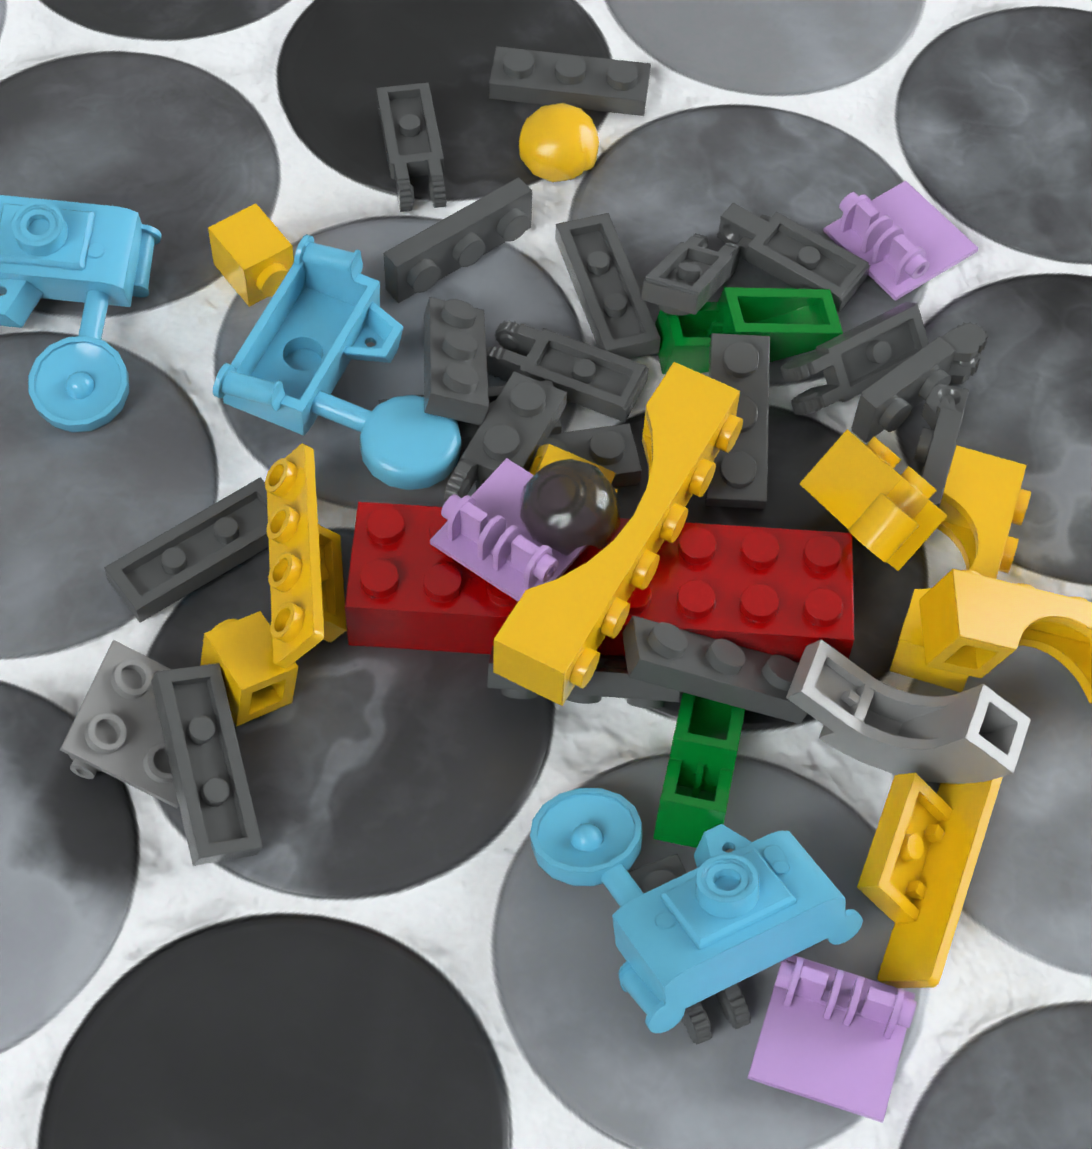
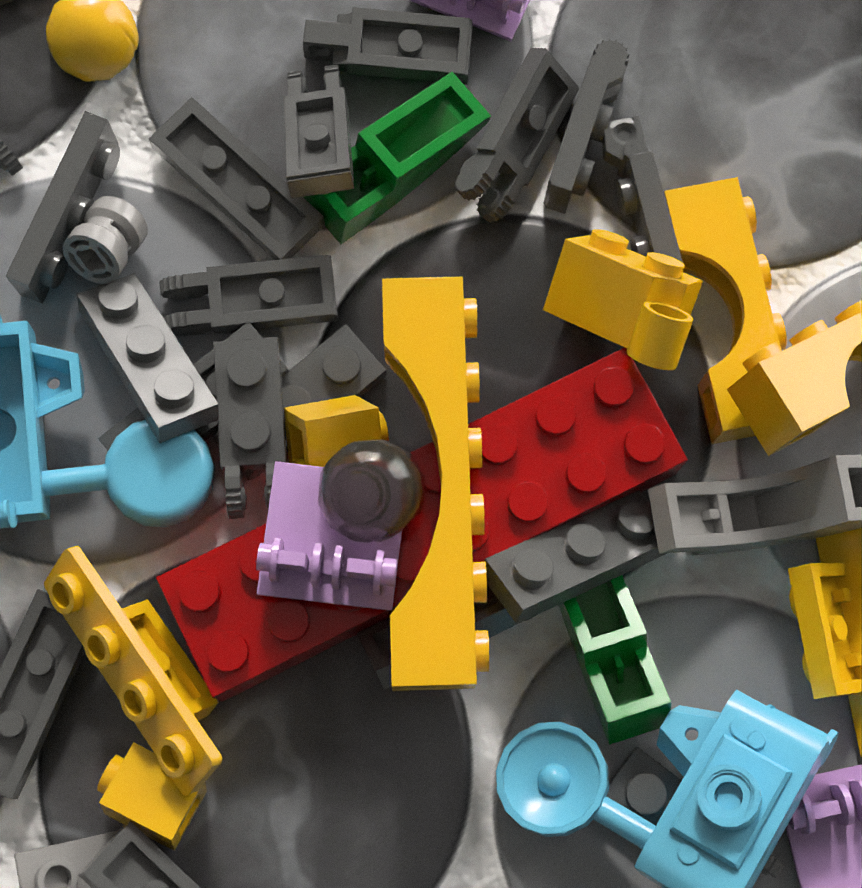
camera: 30 degrees left, 20 degrees up
(476, 271) = (105, 239): none -> light grey wheel
(743, 471) = (439, 247): dark grey plate -> none

